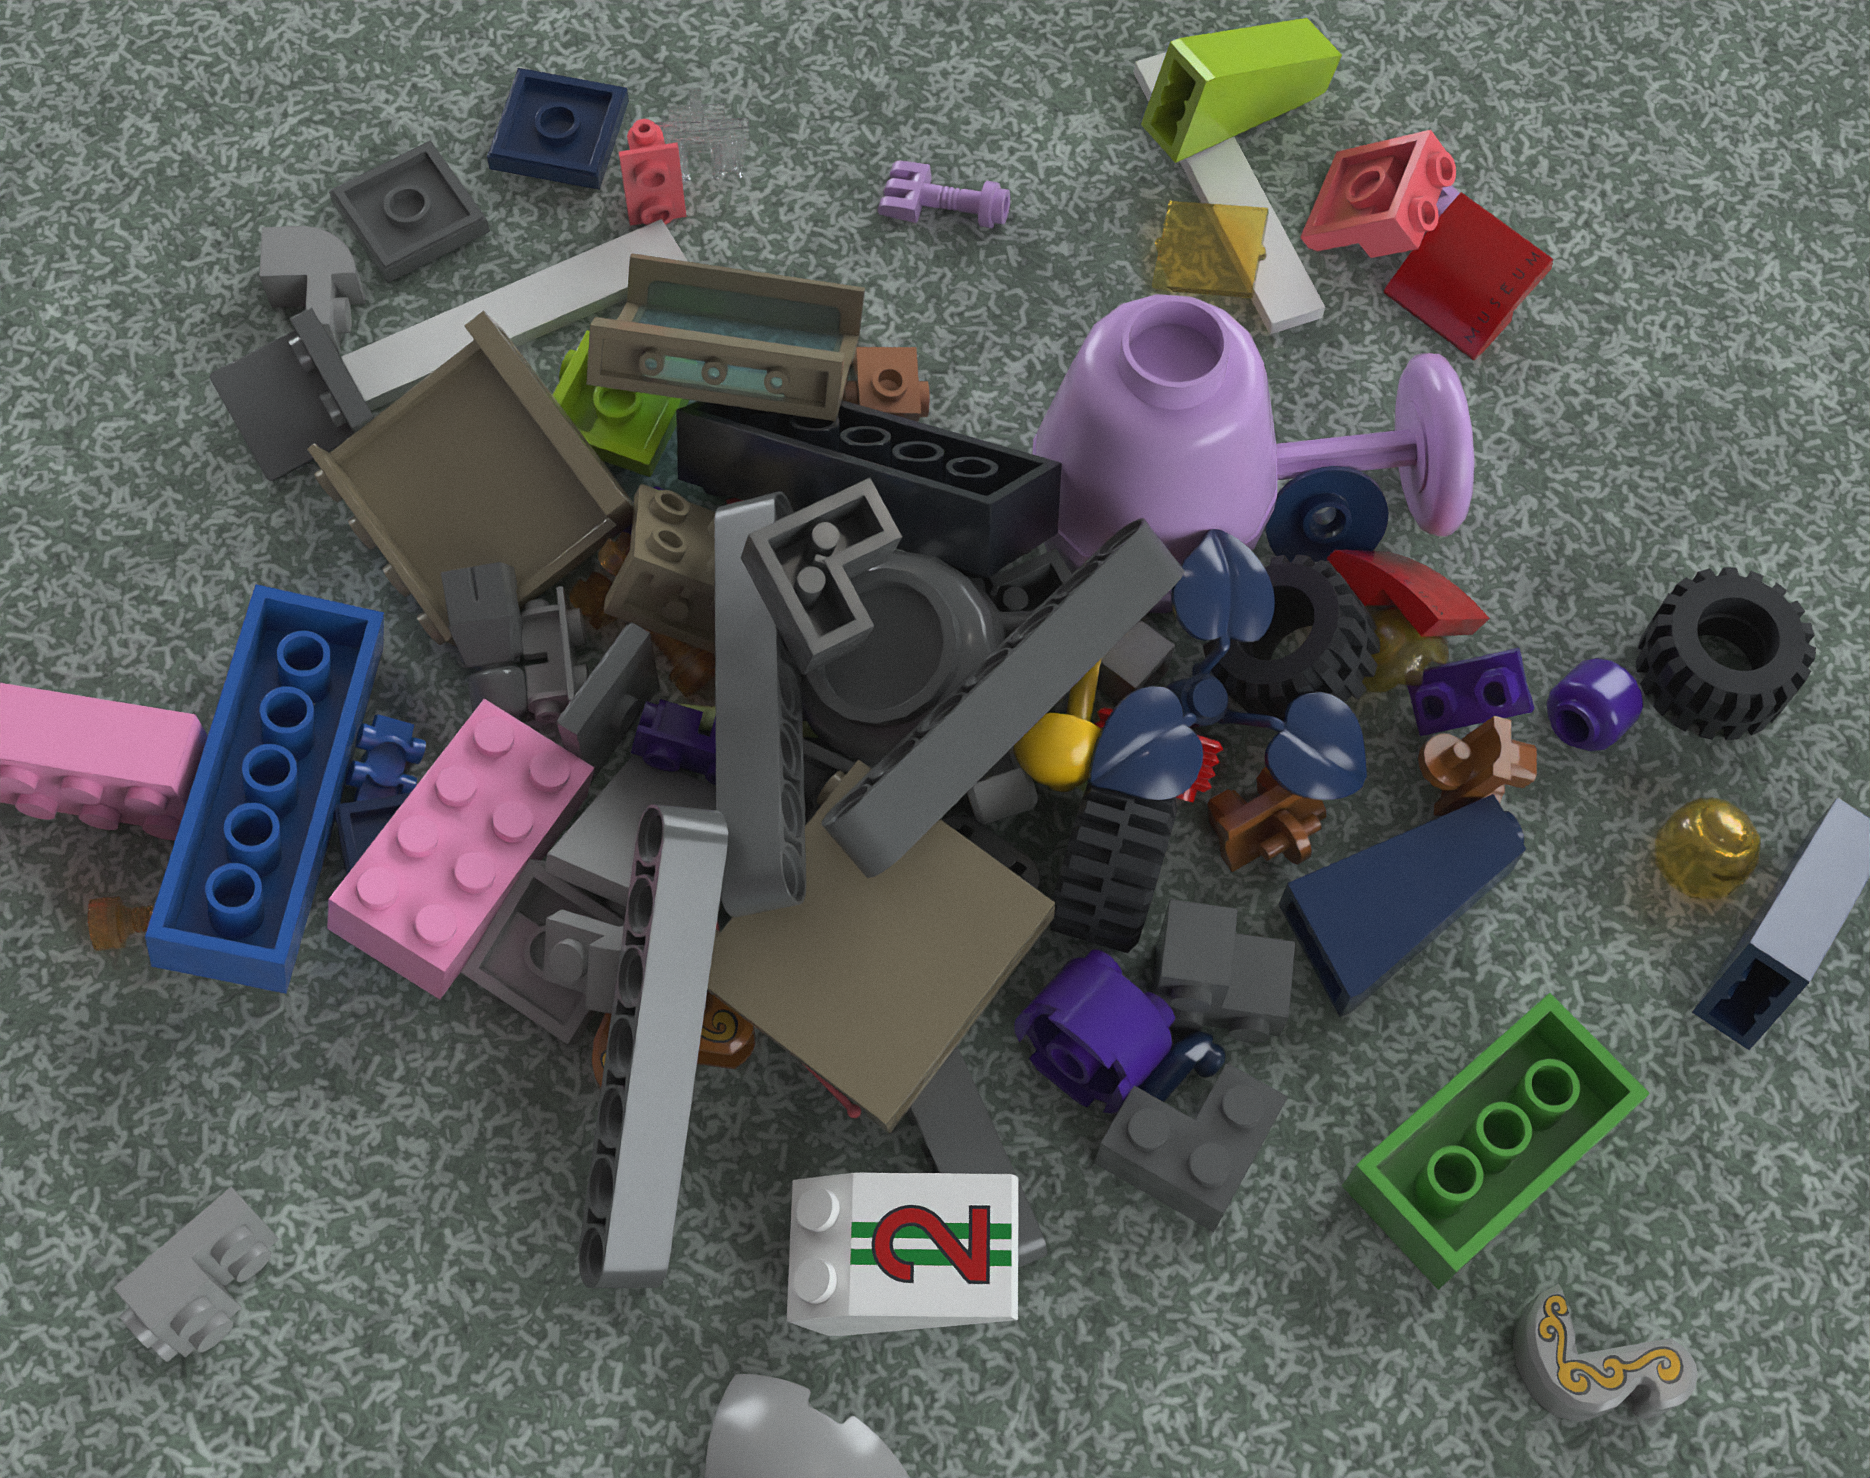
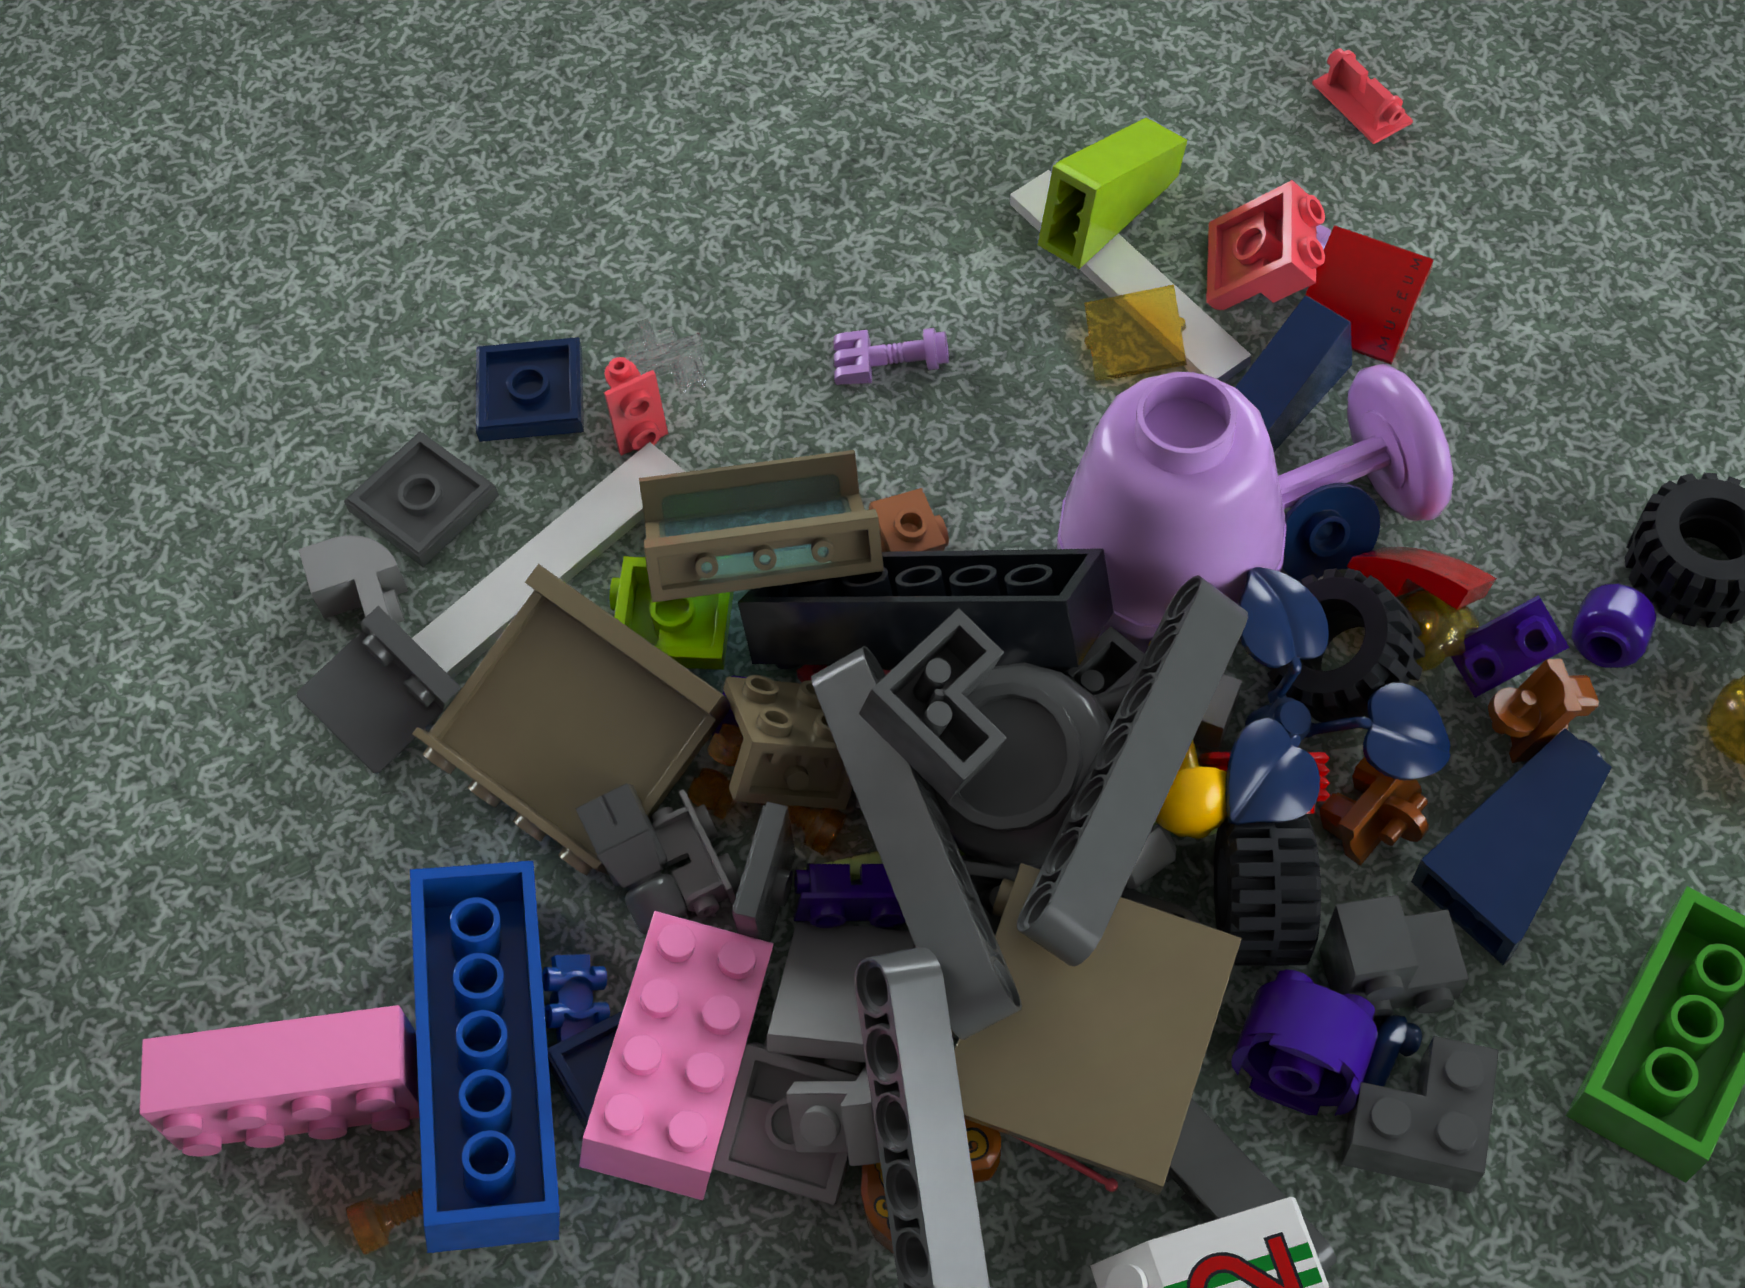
camera: 10 degrees left, 5 degrees down
(1347, 346) = (1298, 367): none -> dark blue slope
(1554, 61) = (1361, 99): none -> coral hinge

